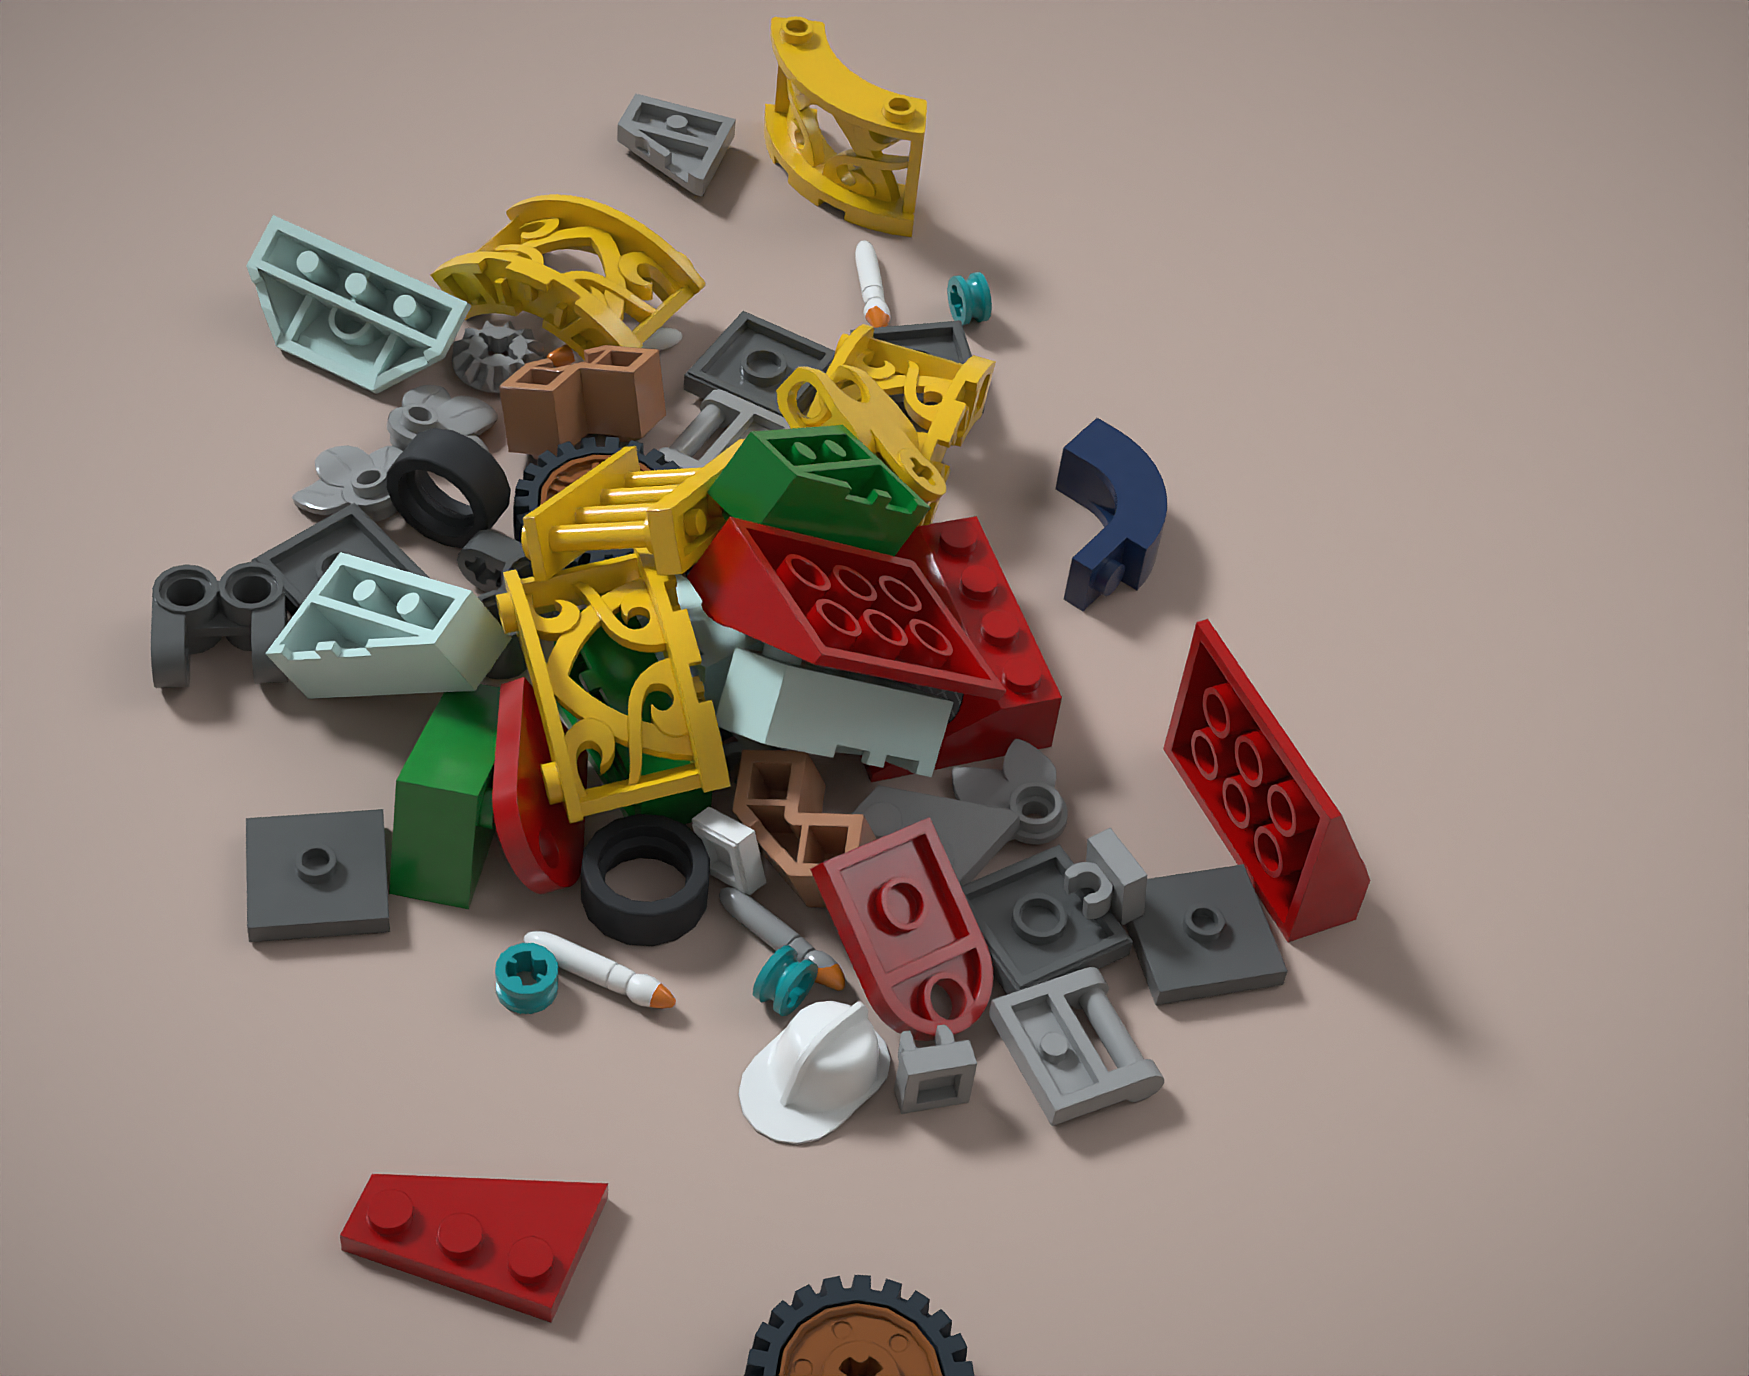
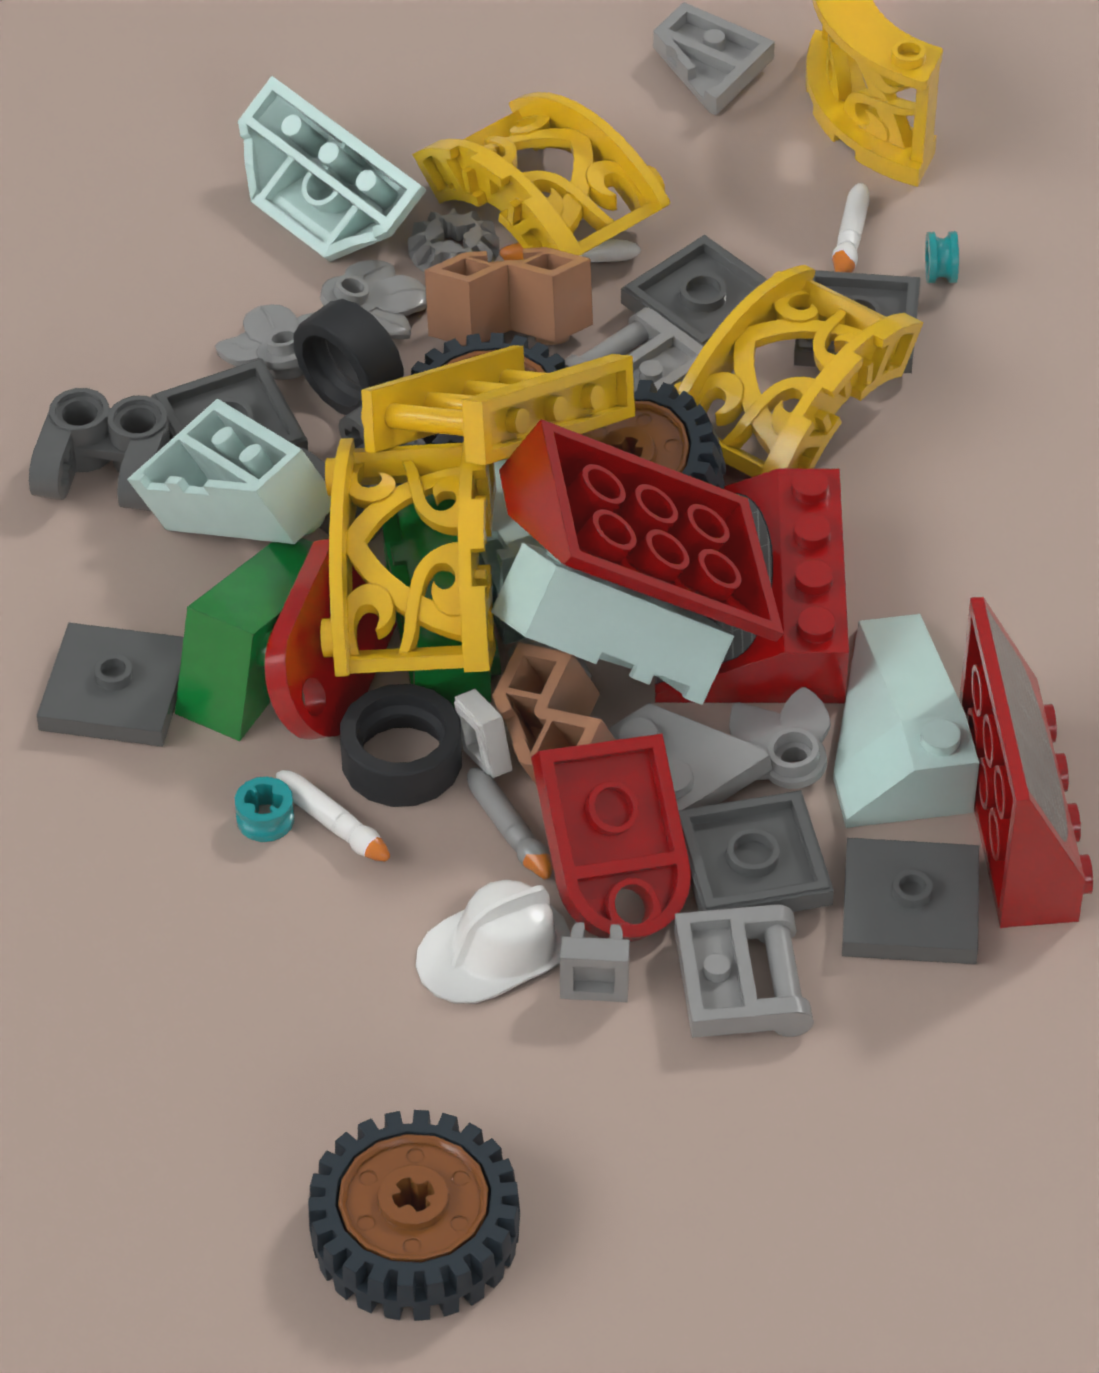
camera: 25 degrees right, 0 degrees up
(479, 1235) = (145, 1014): red wing -> none
(785, 980) = (492, 856): teal bush -> none
(820, 487) = (656, 407): green wedge -> none
(874, 421) = (742, 380): yellow piece -> none
(1113, 875) = (829, 829): light grey tile -> none
(1127, 495) = (1012, 462): dark blue arch -> none
(1129, 760) = (902, 730): none -> light aqua wedge

